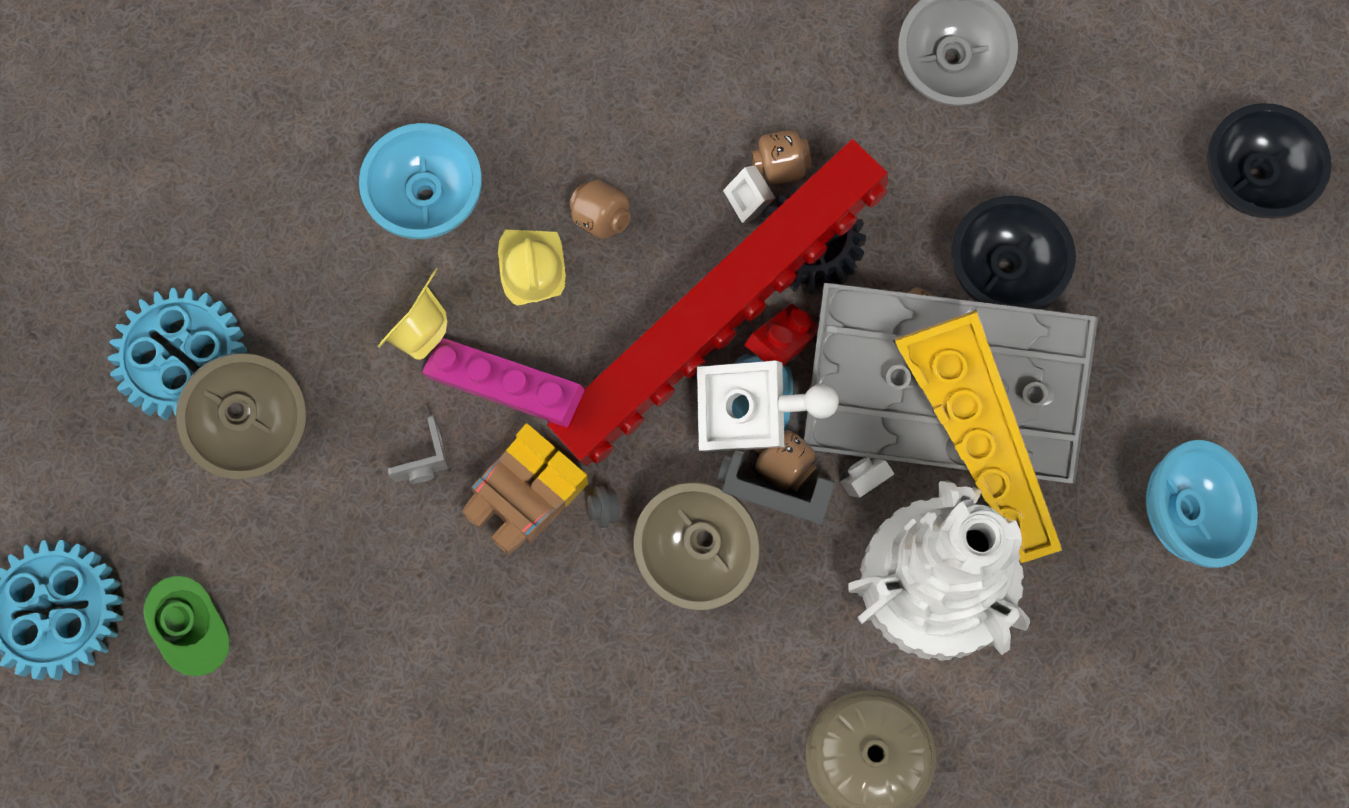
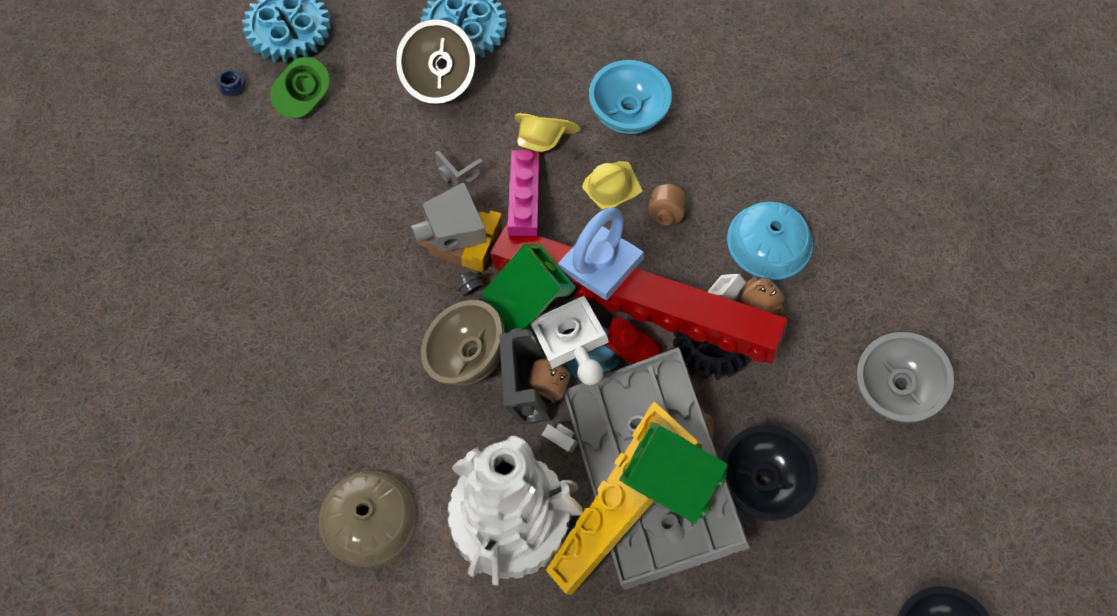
camera: 65 degrees right, 10 degrees down
(103, 724) = (228, 76): none -> dark blue plate
(519, 491) = (451, 221): none -> light grey torso
(660, 433) = (527, 287): none -> green panel
(665, 321) = (601, 256): none -> light blue tile
(695, 129) = (767, 251): none -> medium azure hat
(993, 360) = (674, 473): none -> green panel

